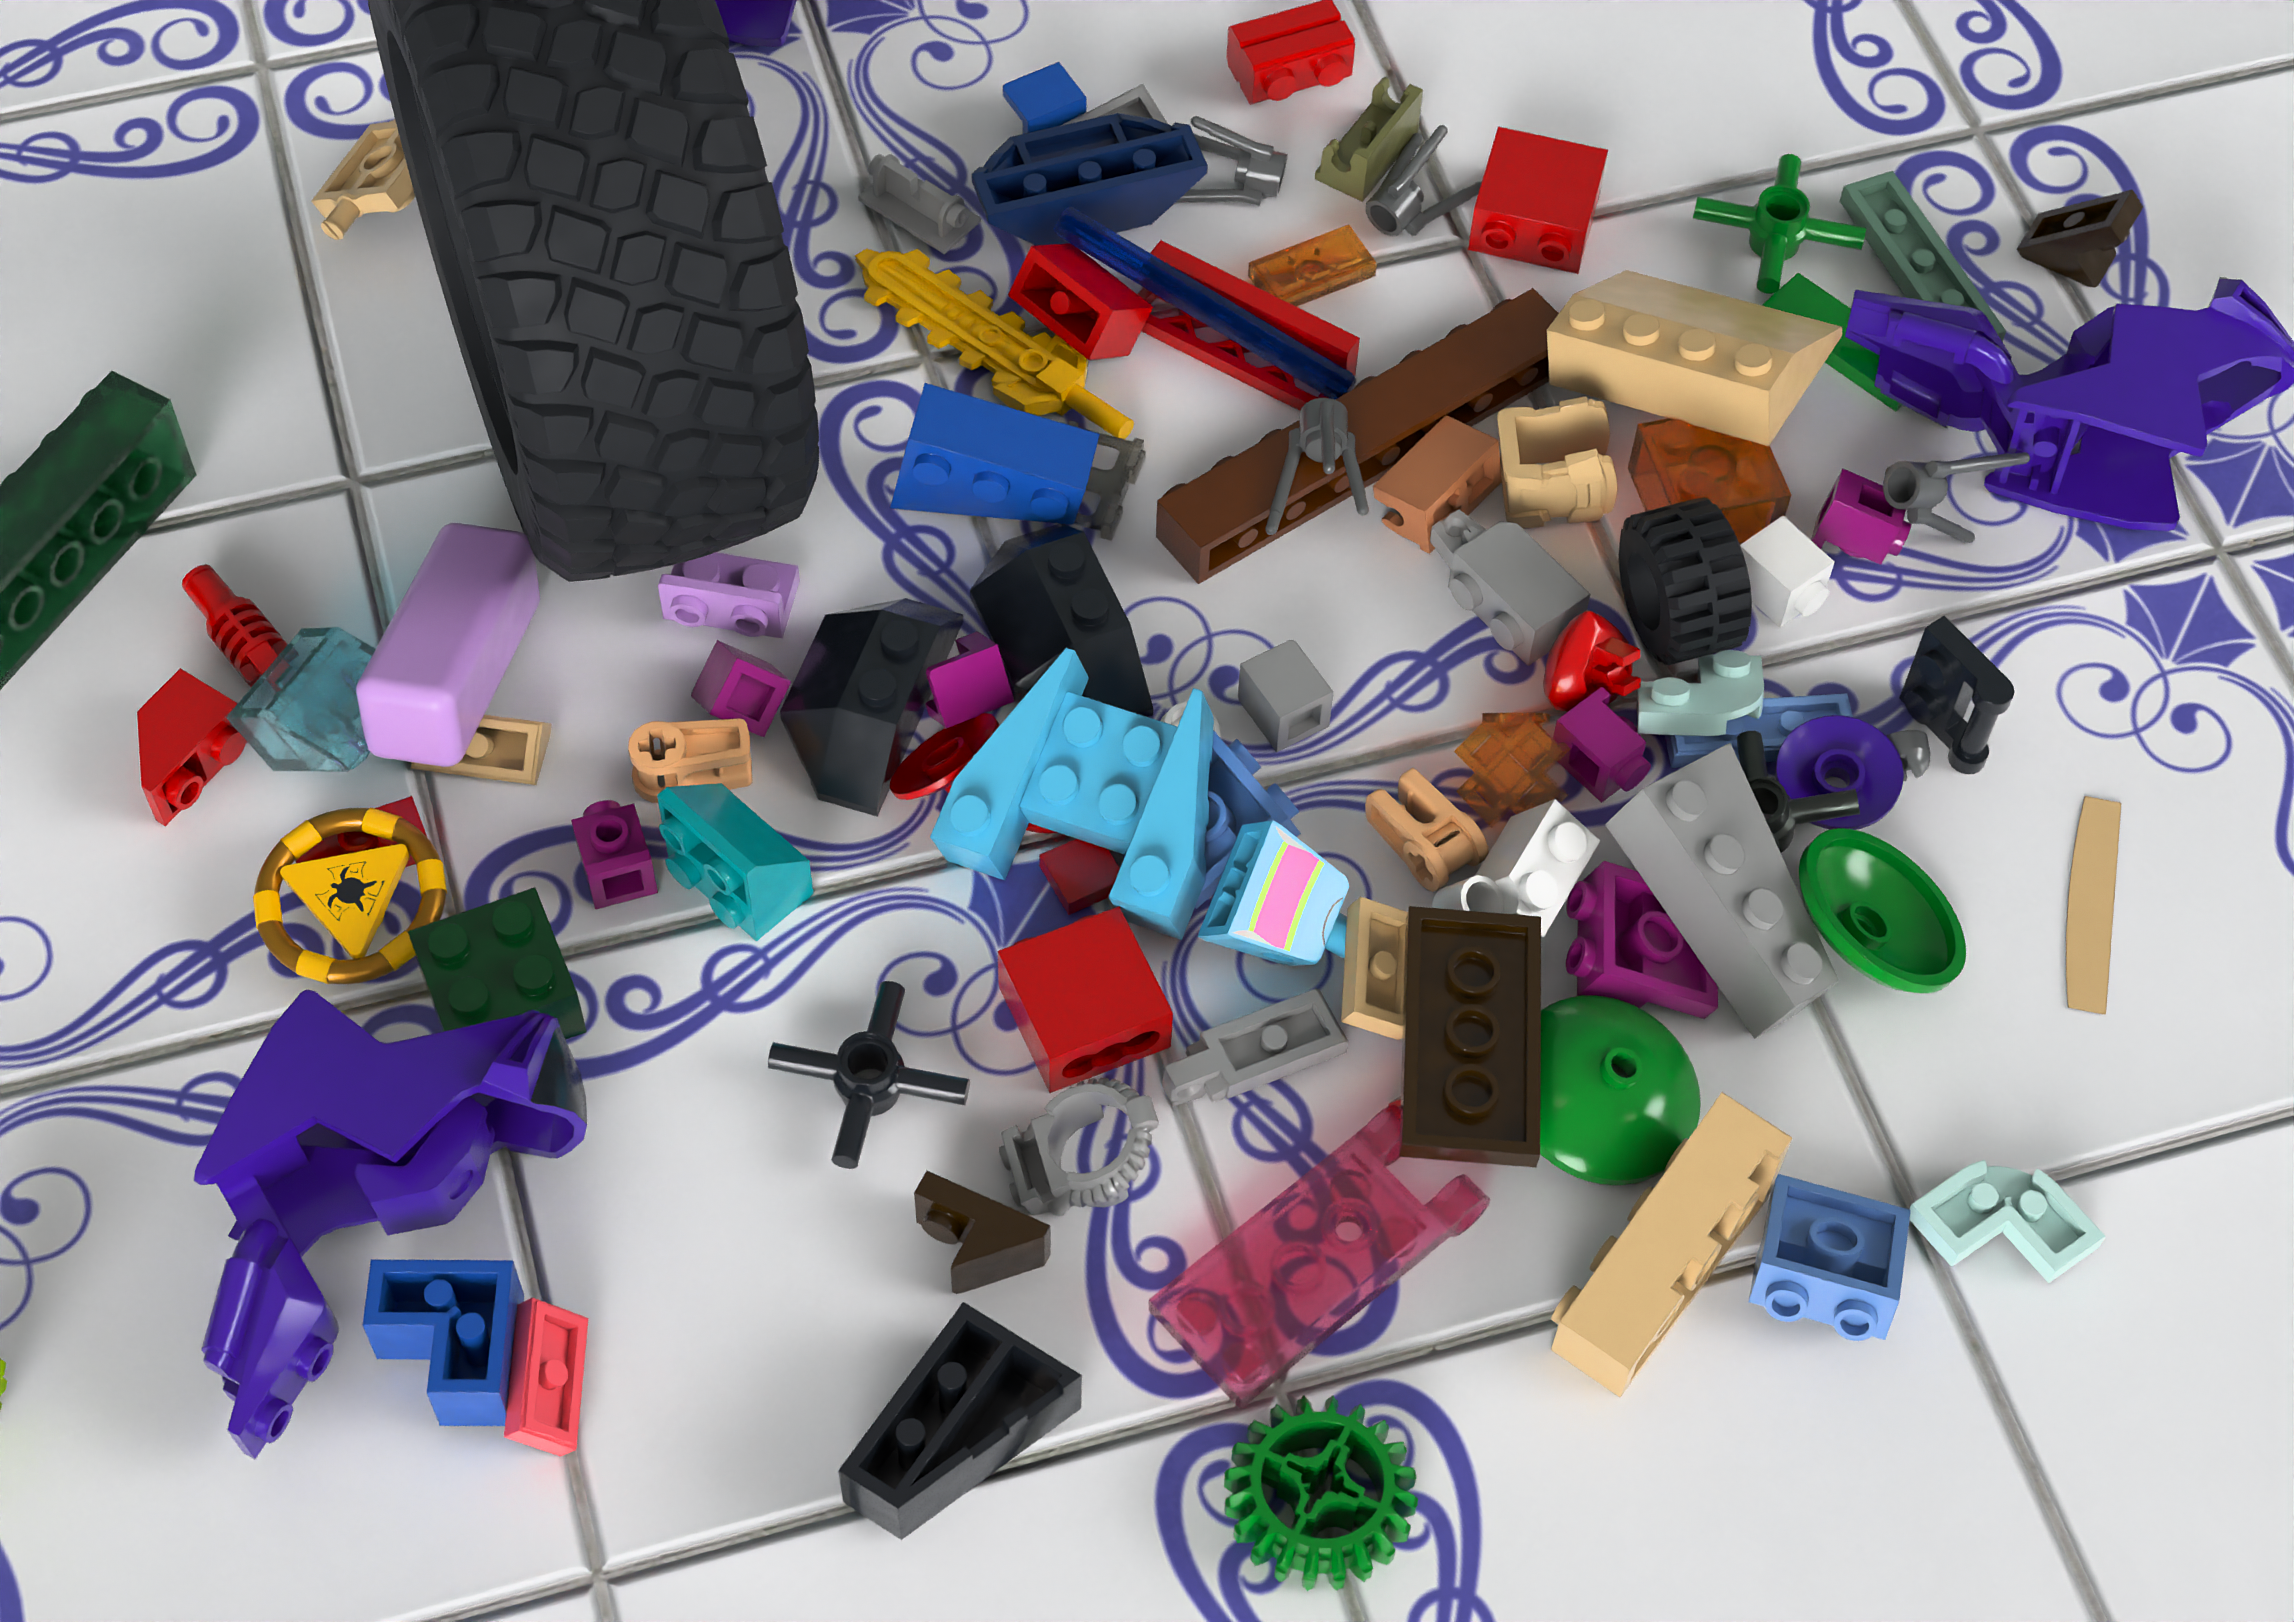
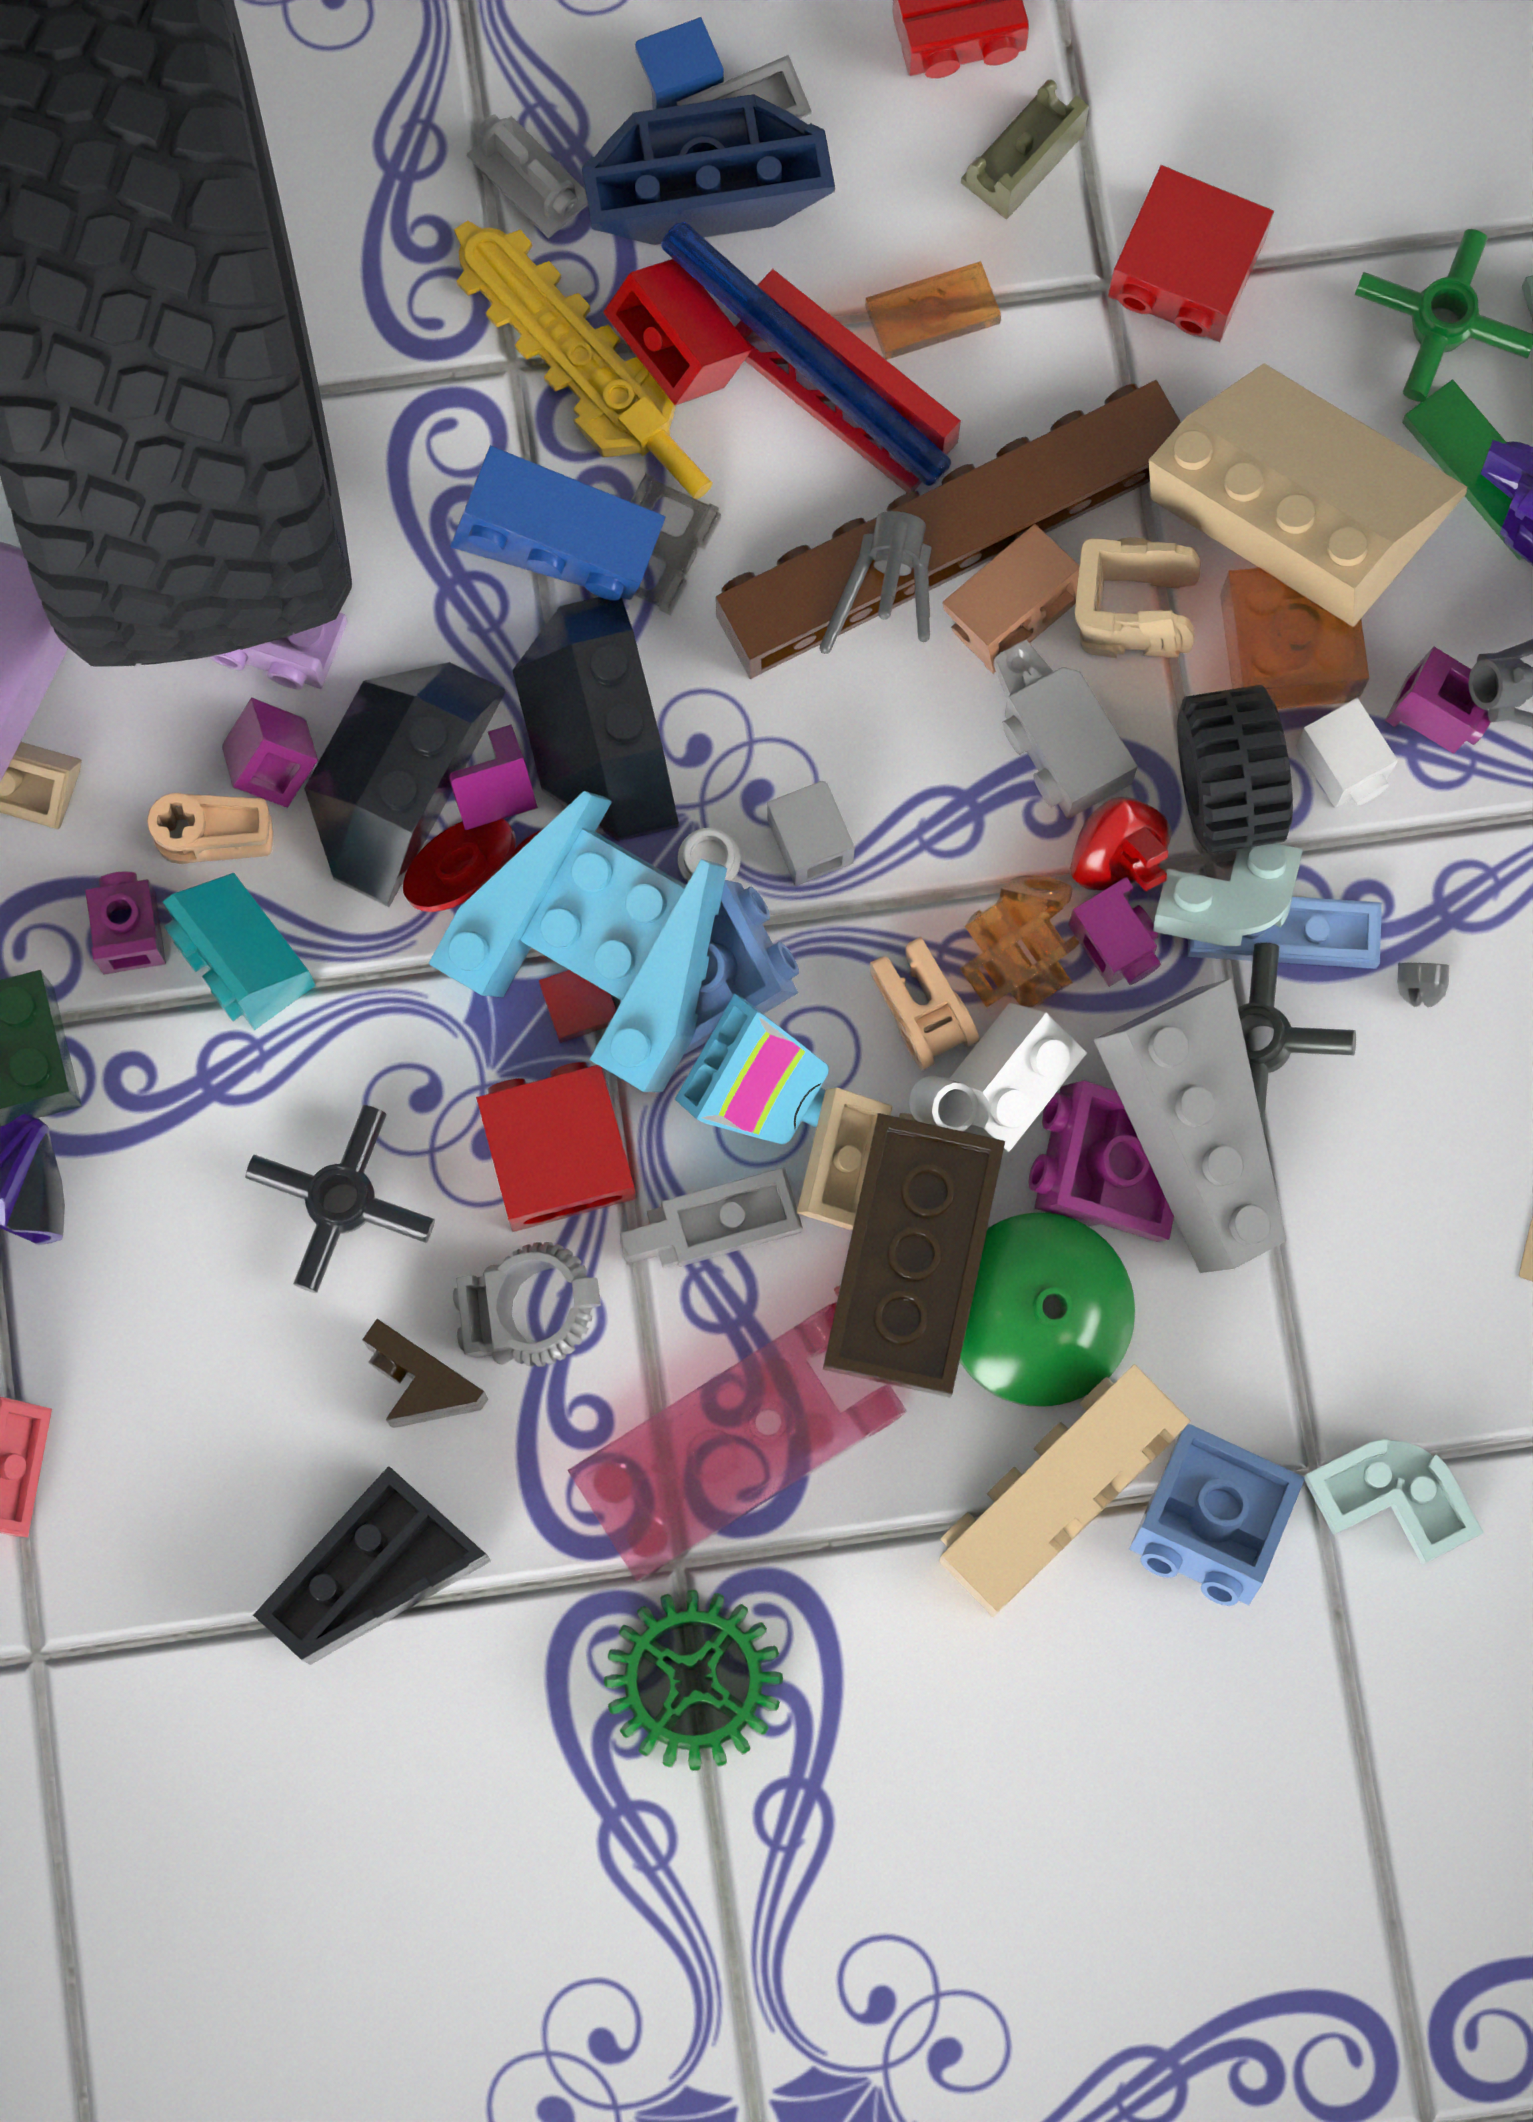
camera: 10 degrees right, 20 degrees up
(1257, 168) = (897, 171): dark grey plant -> none
(1399, 198) = (1039, 234): dark grey plant -> none
(1844, 750) = (1367, 970): dark purple dish -> none
(1881, 912) = (1350, 1165): green dish -> none
(1939, 689) = (1486, 932): black plate -> none

